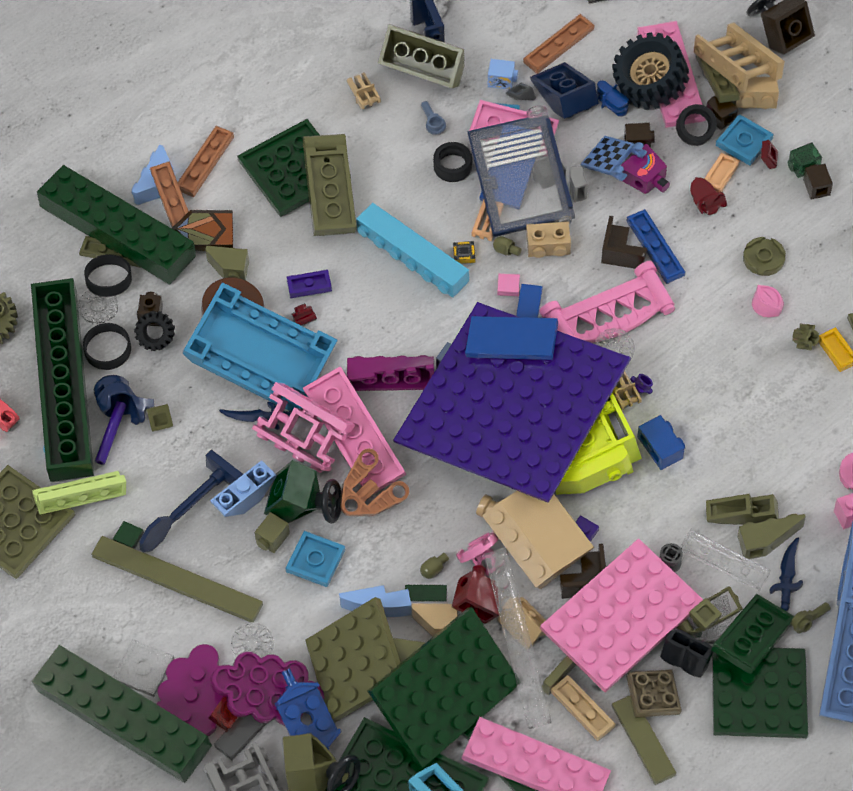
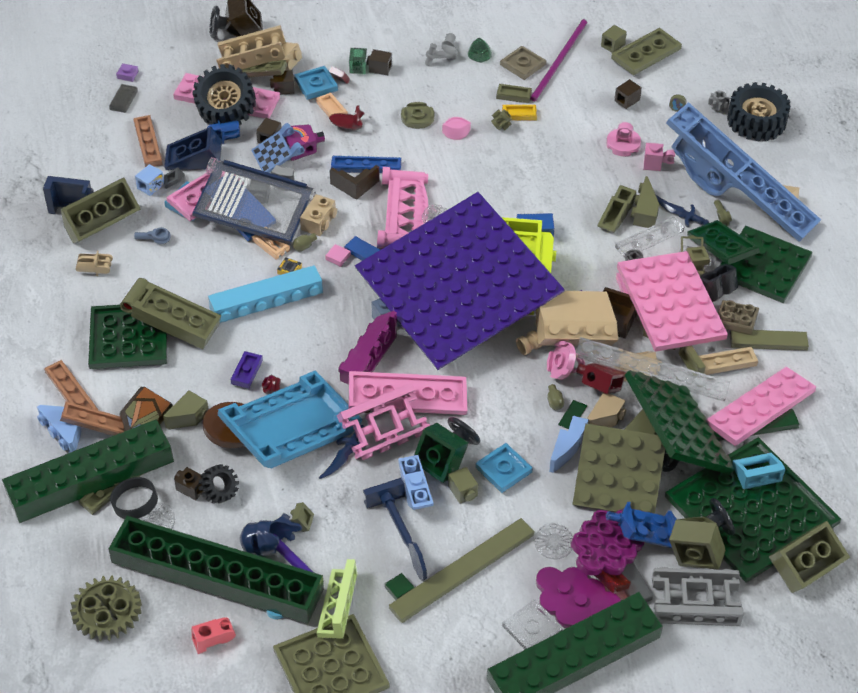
camera: 65 degrees left, 10 degrees down
(107, 327) = (204, 510): black tyre -> none
(381, 503) = (472, 409): nougat connector -> none
(457, 149) = (204, 229): black tyre -> none
(511, 337) = (408, 252): blue tile -> none
(703, 111) = (289, 90): black tyre -> none

